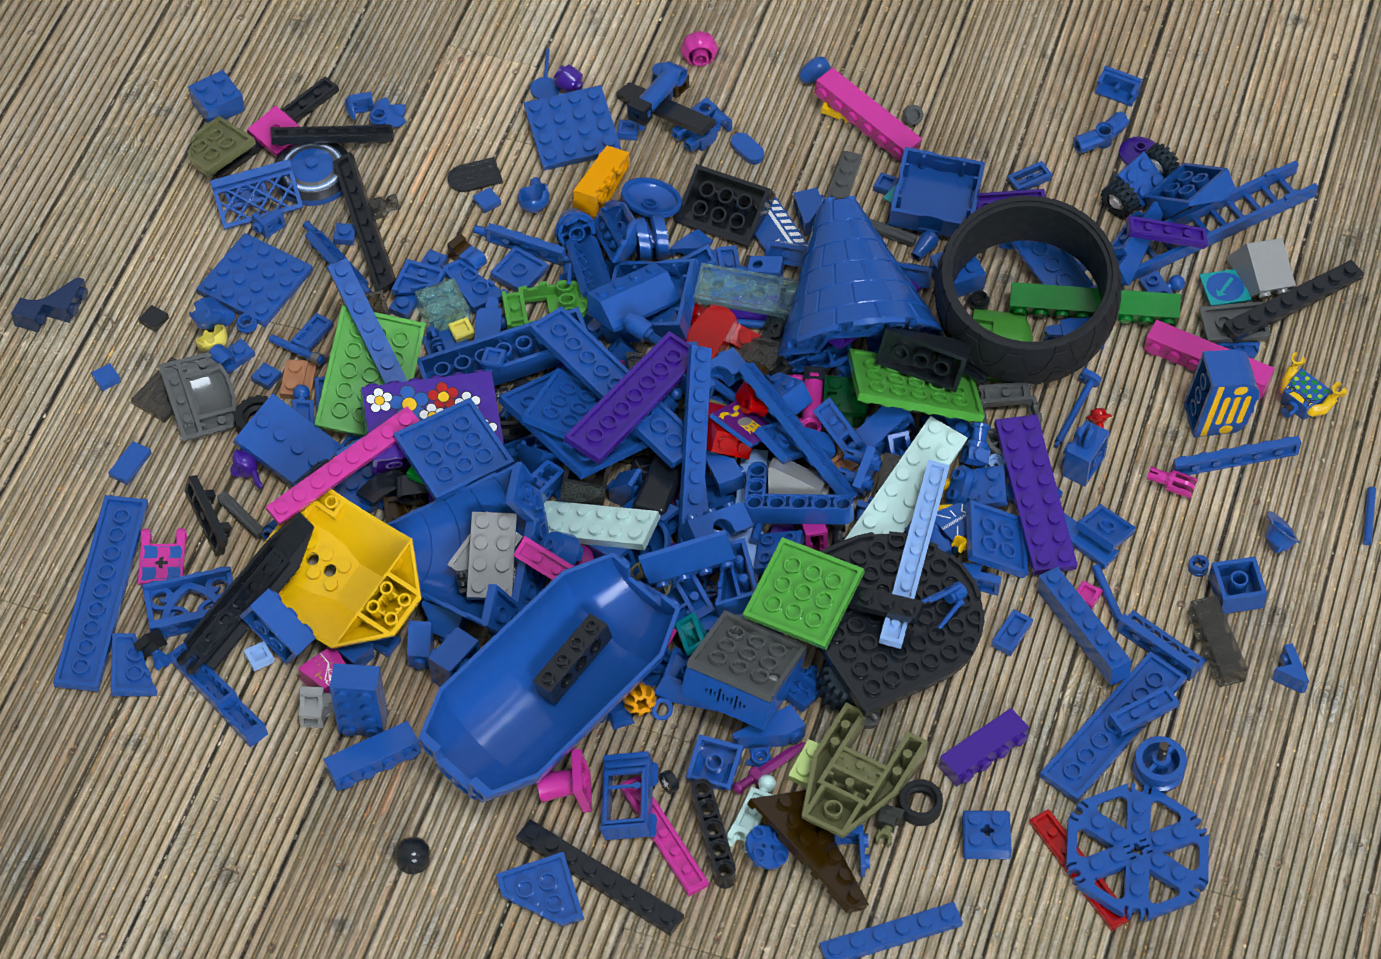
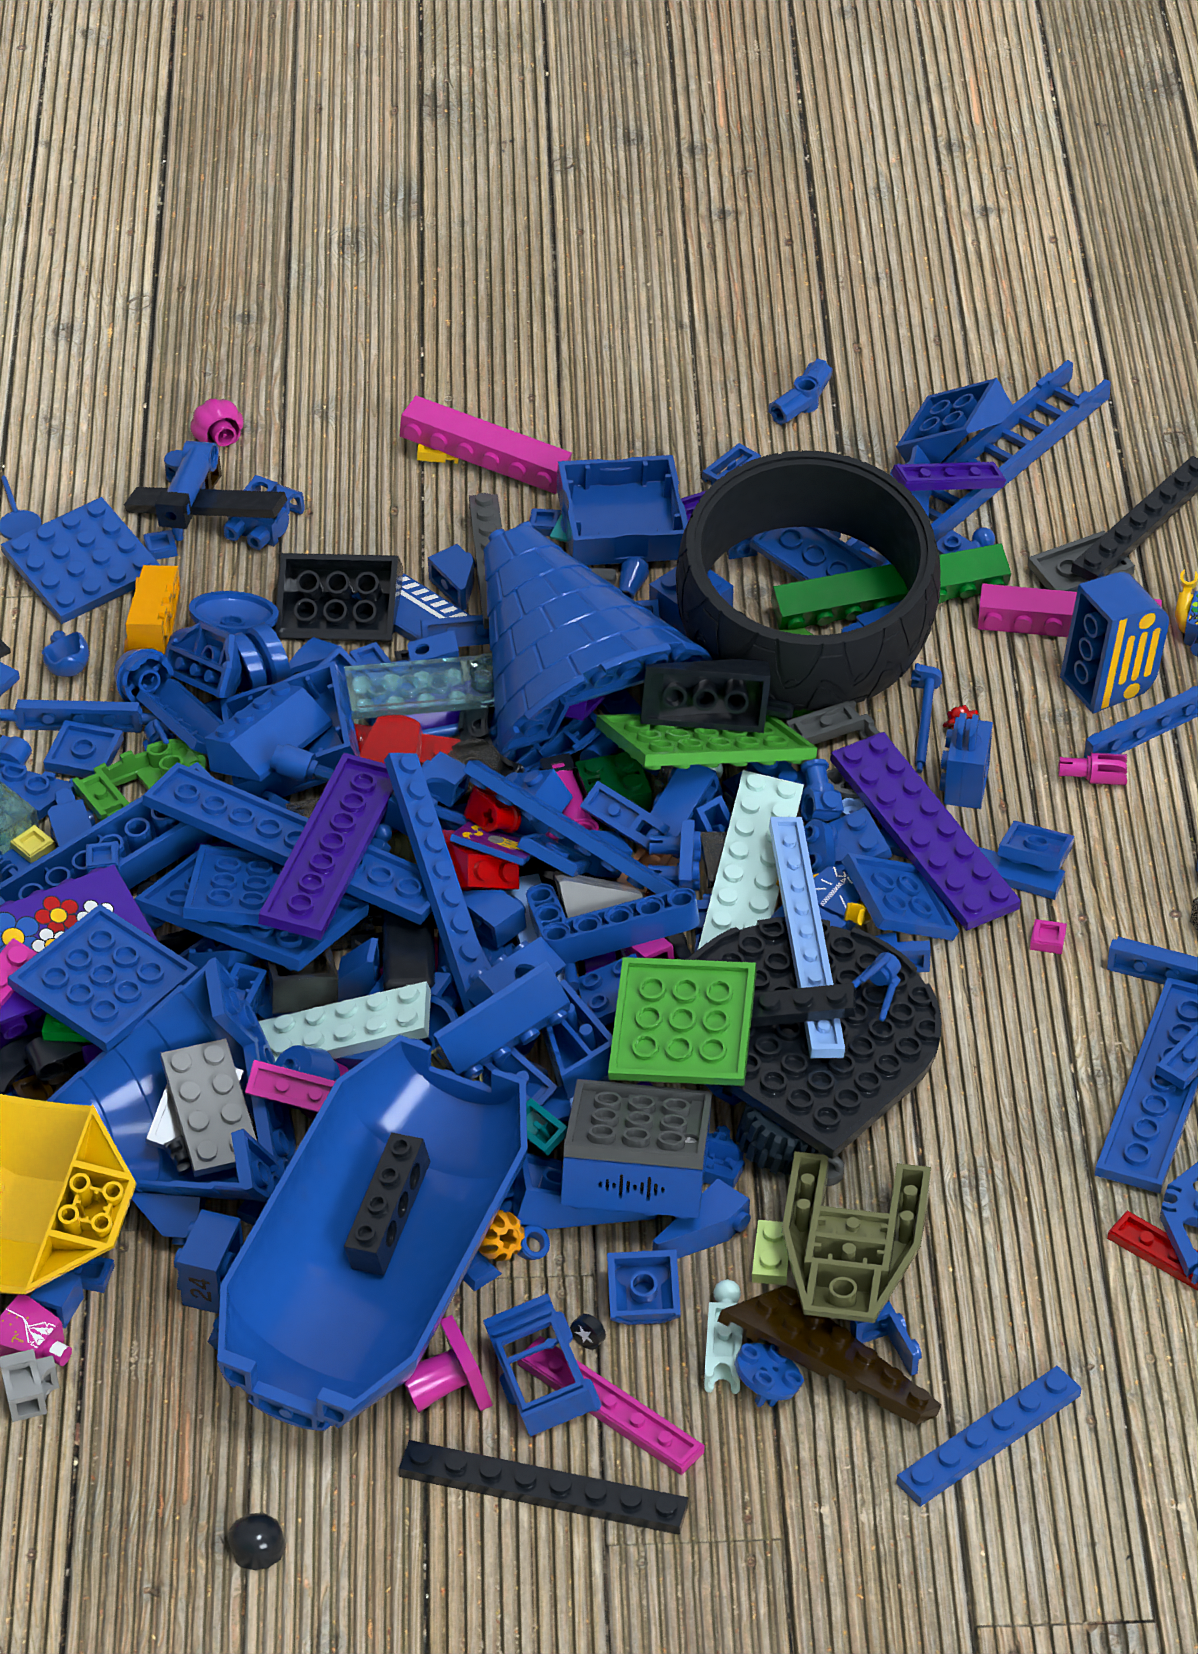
camera: 20 degrees left, 10 degrees down
(358, 699) = (98, 1346): blue brick -> none
(372, 756) = (139, 1425): blue brick -> none
(419, 644) = (150, 1255): blue slope -> none
(543, 889) = (471, 1526): blue plate -> none
(568, 78) = (51, 501): dark purple head -> none
(716, 842) = (682, 1379): black beam -> none
(747, 148) = (336, 526): blue tile -> none
(755, 773) = (706, 1284): magenta sword -> none
(757, 753) = (697, 1258): blue plate -> none
(814, 70) = (387, 411): blue animal -> none
(887, 821) = (917, 1288): pearl dark grey piece -> none
(912, 114) = (543, 429): dark grey tile -> none
(926, 787) = (951, 1274): black tyre -> none
(976, 844) = (1060, 1267): blue brick -> none
(984, 747) = (1004, 1159): dark purple brick -> none
(1011, 632) = (972, 1008): blue plate -> none
(1084, 626) = (1068, 969): blue brick -> none
(1100, 577) = (1074, 926): blue bar -> none
(1118, 86) = (798, 334): blue hinge -> none
(1133, 147) = (860, 405): dark purple dish -> none
(1138, 179) = (882, 423): plate -> none
(1194, 569) = (1176, 866): blue bush -> none
(1224, 288) = (1048, 527): piece -> none
(1263, 268) = (1088, 489): light grey slope -> none

